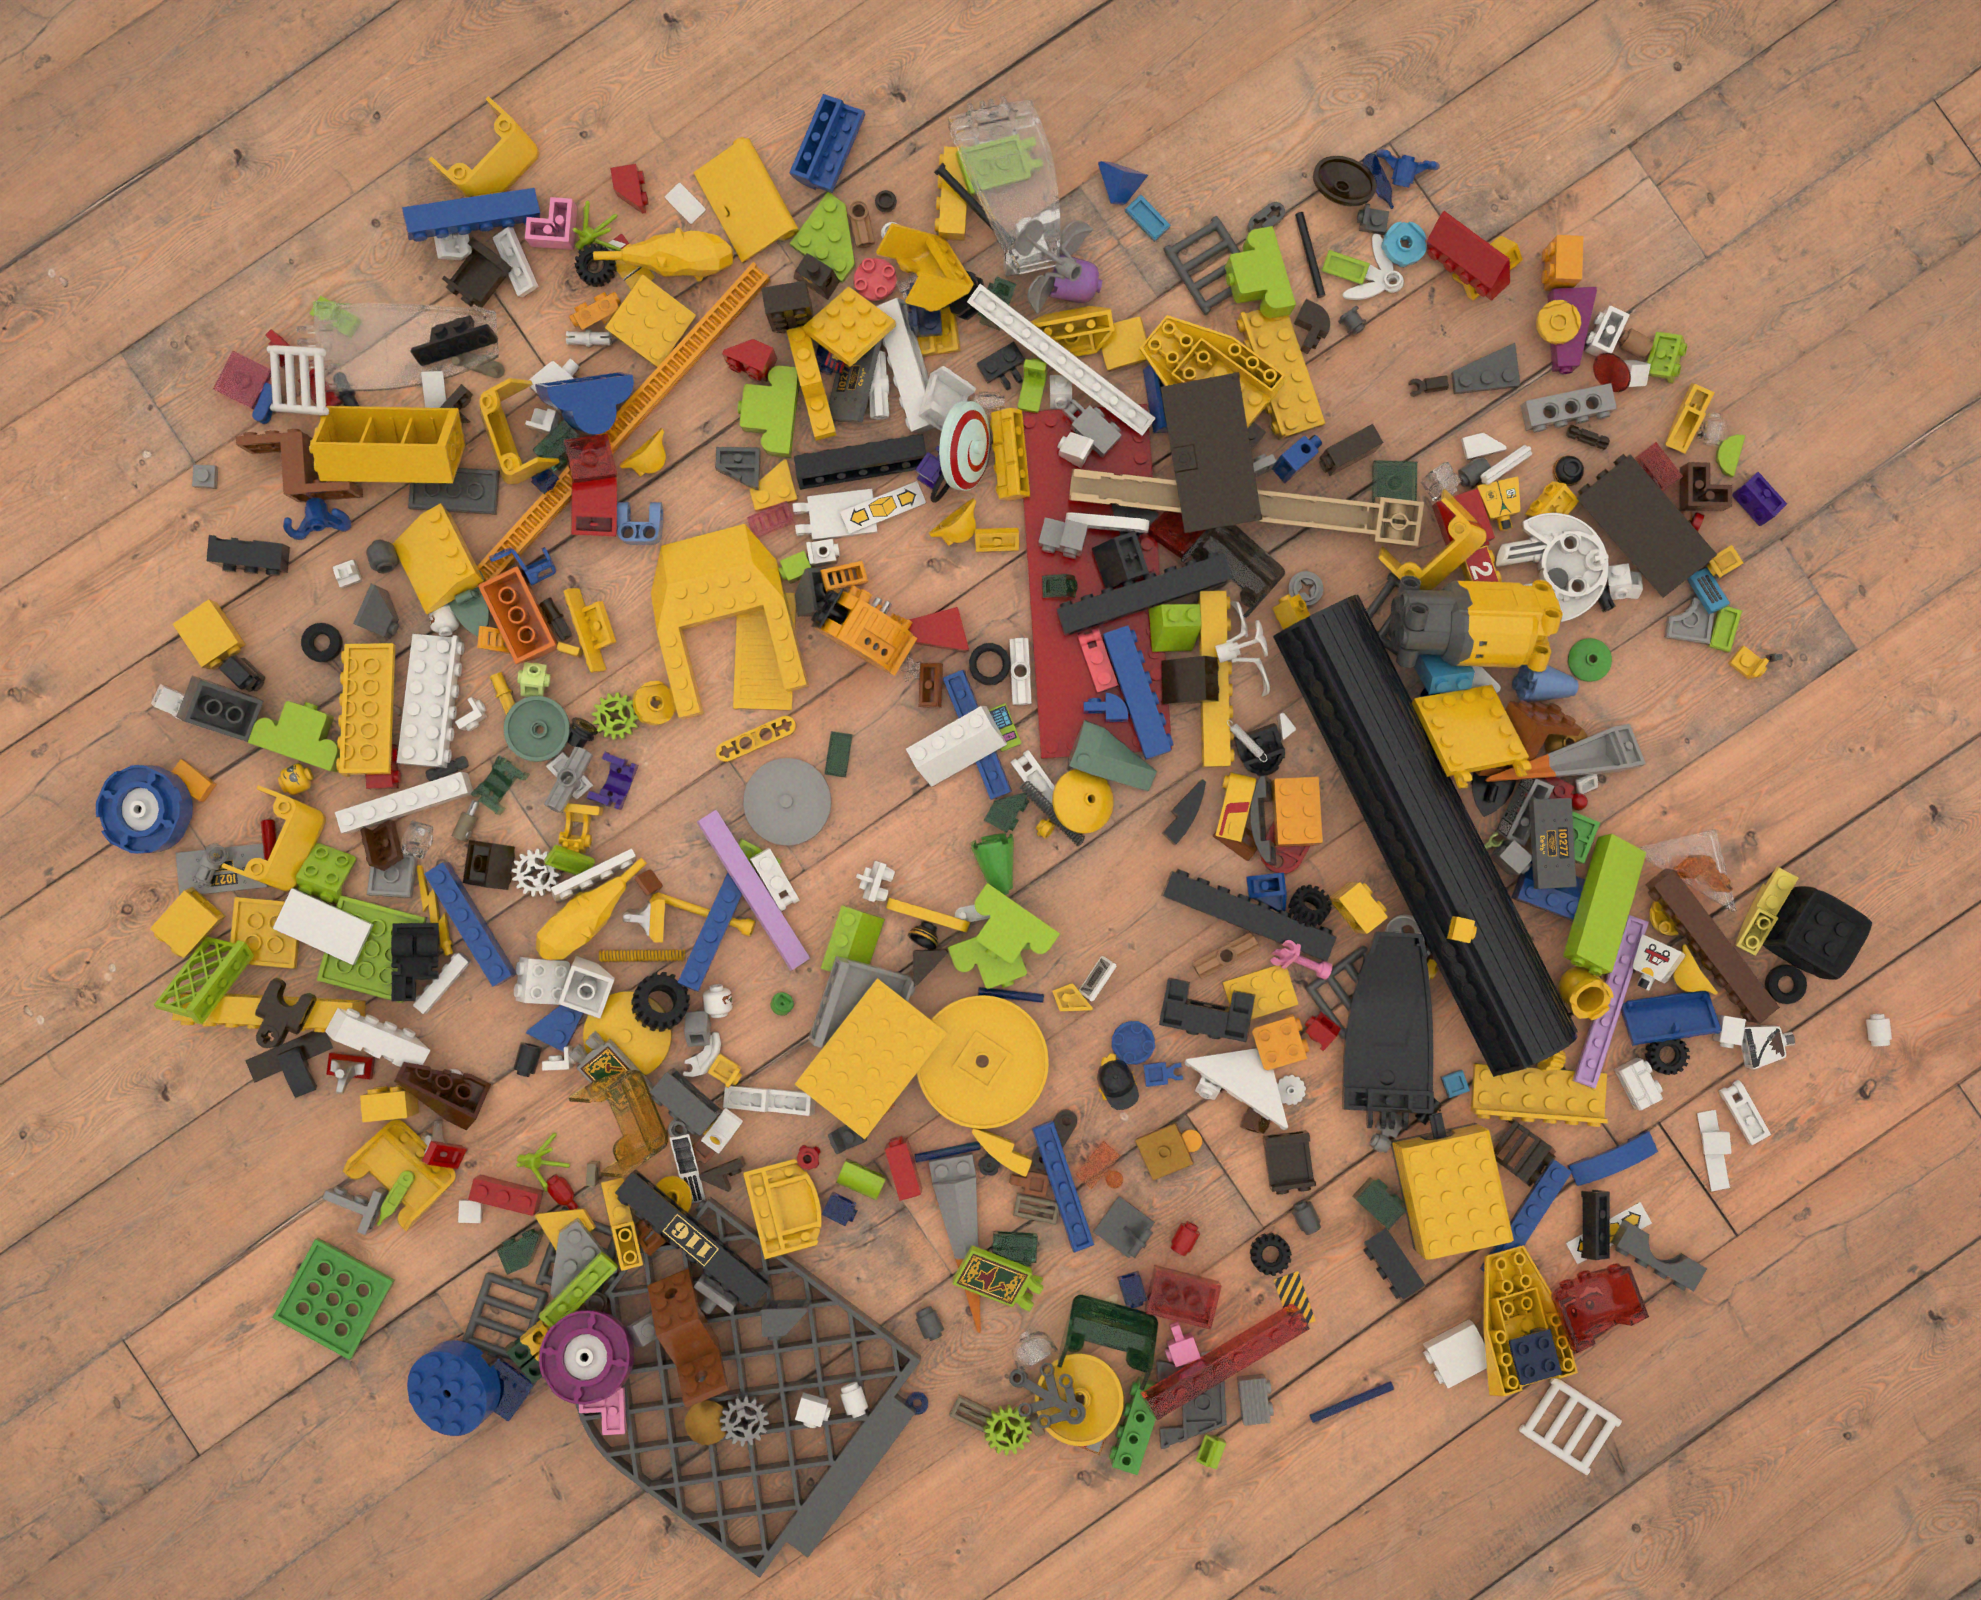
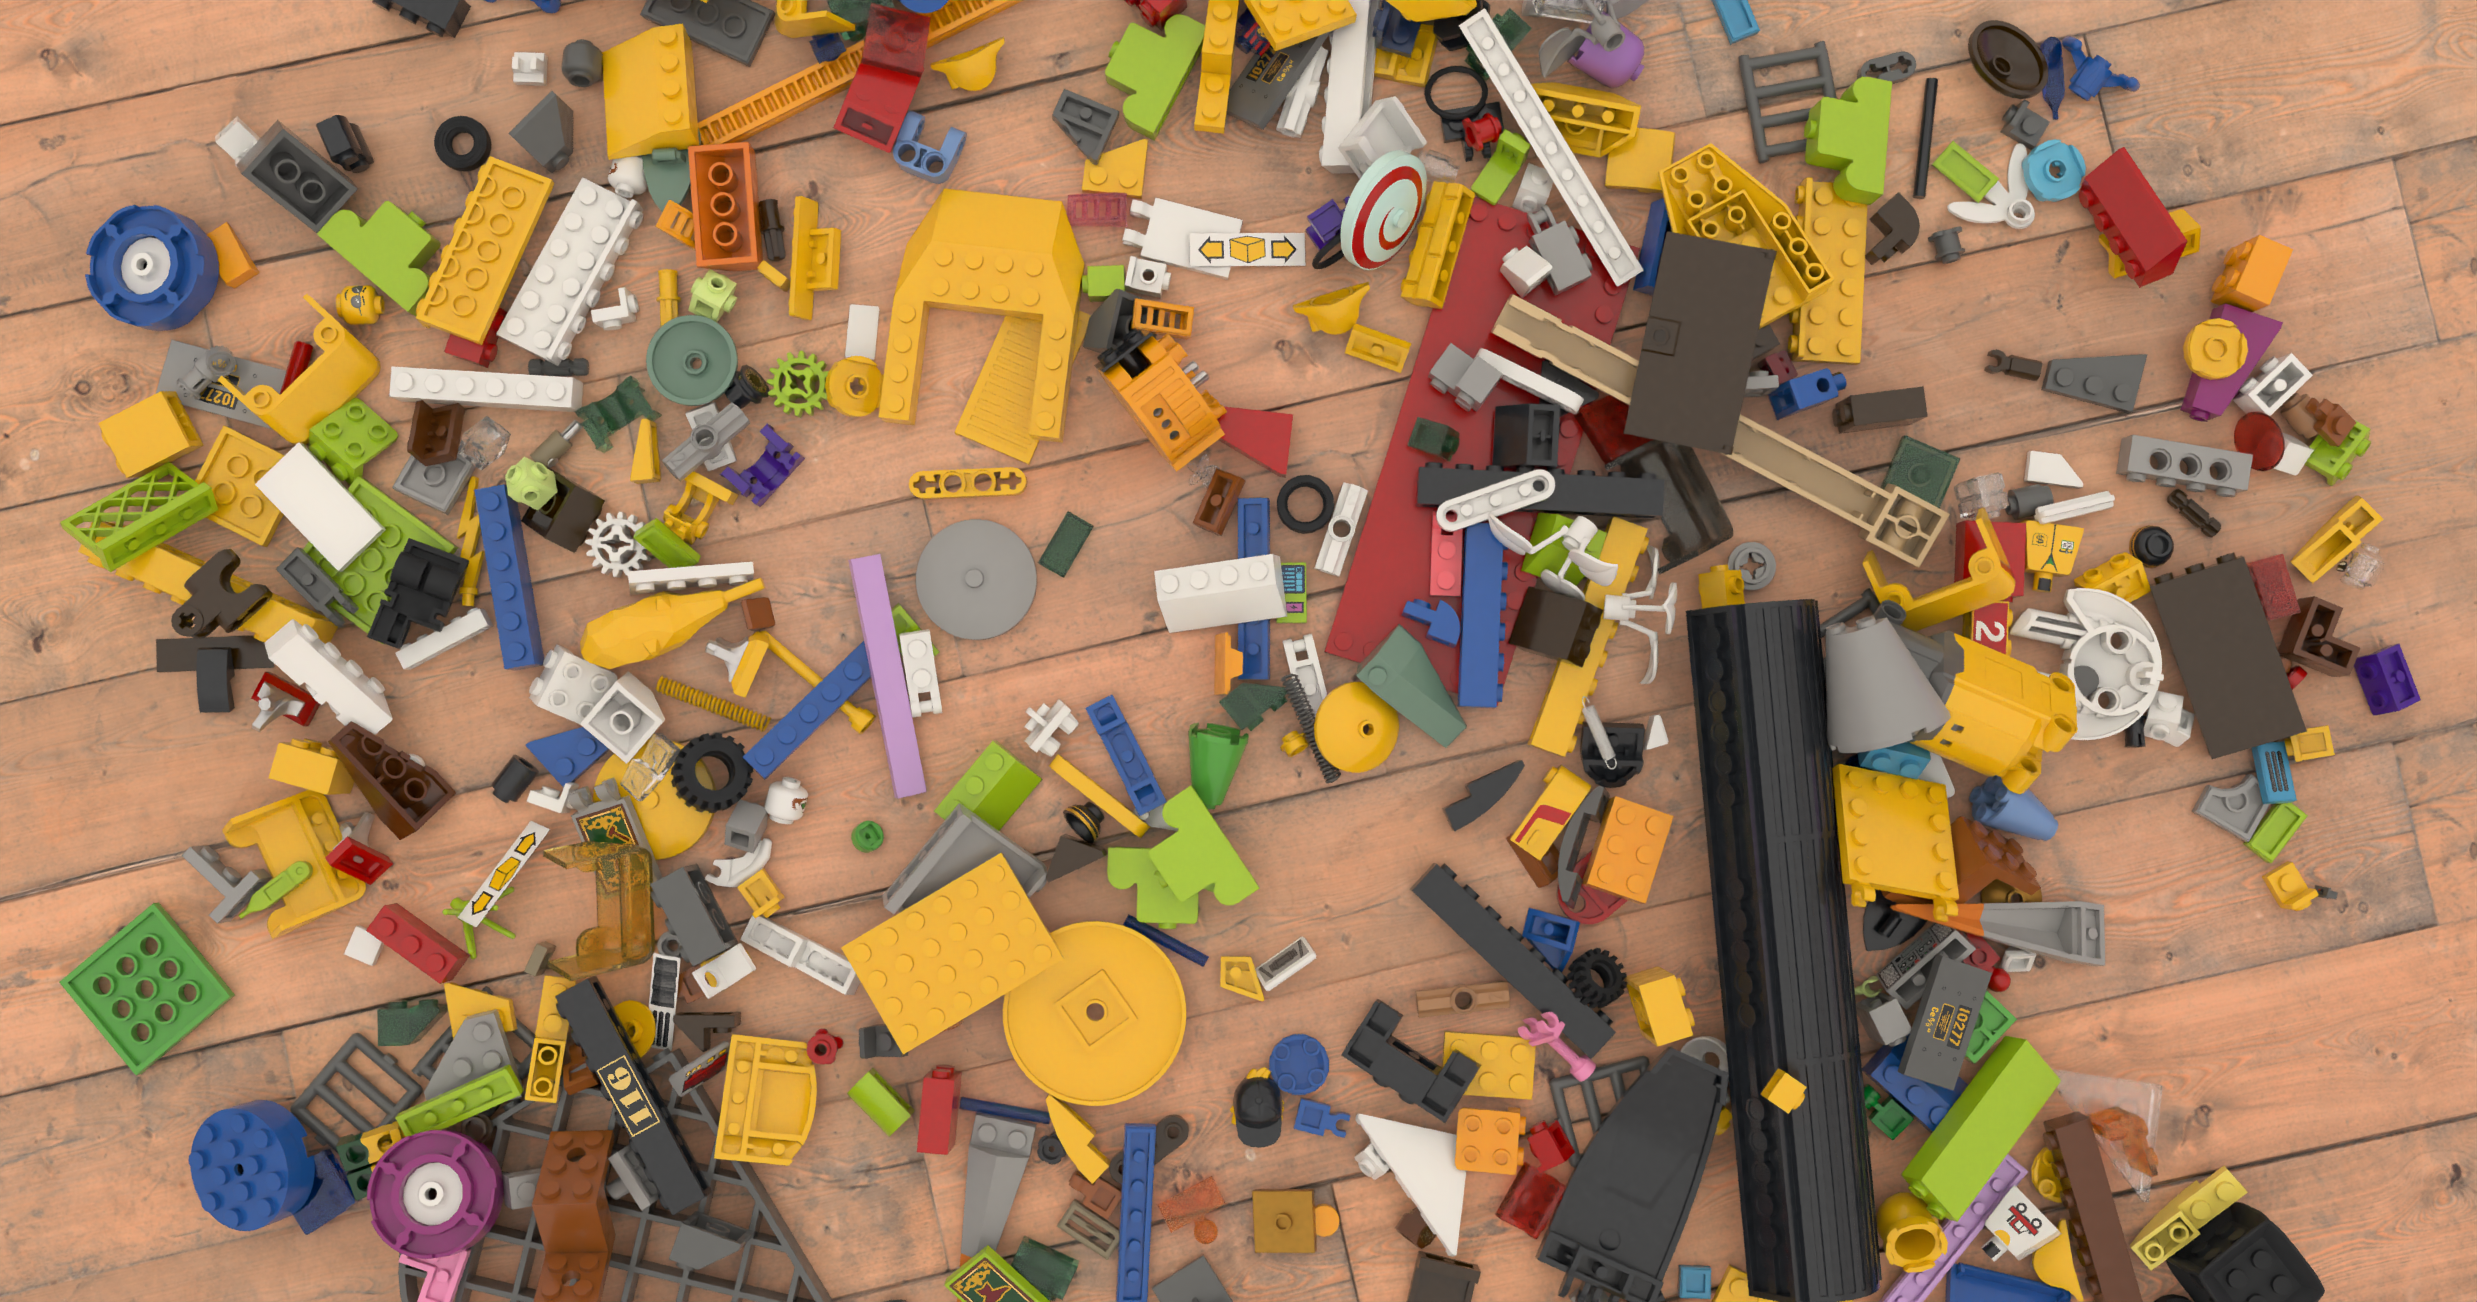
camera: 25 degrees right, 0 degrees up
(209, 635) = (323, 77): yellow brick -> none
(341, 980) = (315, 585): none -> dark grey hinge
(460, 854) = (530, 483): none -> yellowish green brick
(532, 570) = (766, 155): blue piece -> none
(532, 809) = (646, 457): none -> yellow slope
(546, 1125) = (503, 874): none -> sticker
(561, 1191) = (491, 966): red plant -> none
(616, 1019) = (646, 773): none -> clear slope
(643, 664) = (862, 331): none -> white sticker
(731, 1204) = (700, 1069): none -> slope
(840, 1209) = (837, 1130): clear blue brick -> none
(859, 461) = (1239, 179): black brick -> none
(935, 880) = (1126, 755): none -> blue slope
(979, 792) = (1227, 663): none -> light orange piece
(982, 364) = (1454, 116): none -> black tyre
(1010, 366) = (1482, 131): none -> red brick
(1116, 611) = (1498, 498): none -> white plate
(1180, 616) = (1575, 540): none -> white plant
(1271, 446) = (1779, 365): none -> dark red bracket
(1291, 1089) = (1479, 1205): white piece -> none
(1324, 1072) = (1531, 1200): none -> clear red bracket
(1418, 638) = (1875, 689): none -> light grey cone
(1540, 921) = (1888, 1115): none -> green plate
(1579, 659) = (2069, 801): bright green dish -> none
(1655, 340) = (2332, 421): none -> dark orange plate
(1729, 453) = (2369, 606): lime tile -> none

